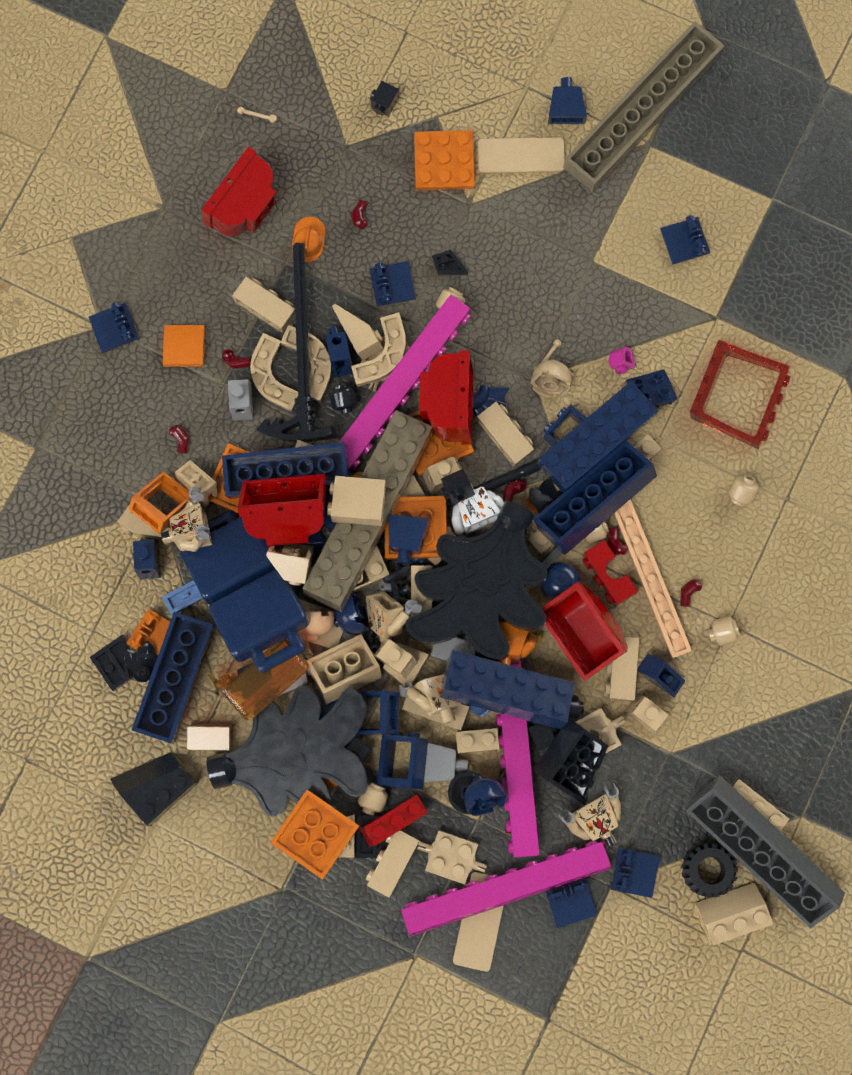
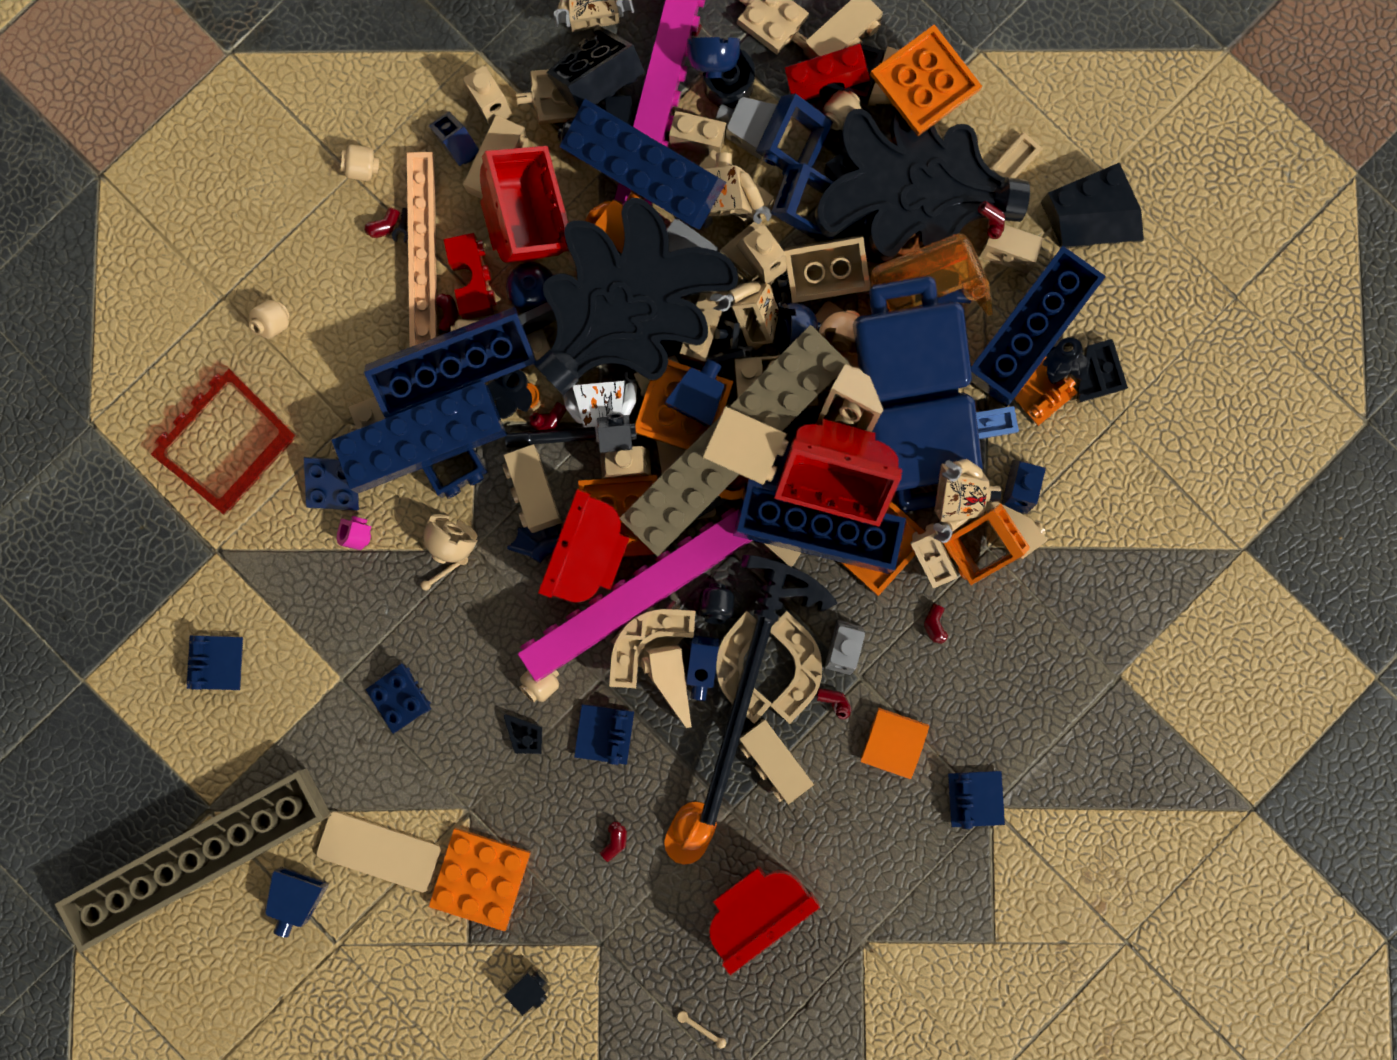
camera: 165 degrees left, 5 degrees up
(227, 809) = (1016, 157): none -> tan tile
(228, 747) = (995, 221): none -> dark red arm
(545, 259) = (398, 698): none -> dark blue hinge
(673, 593) = (402, 226): none -> black hand

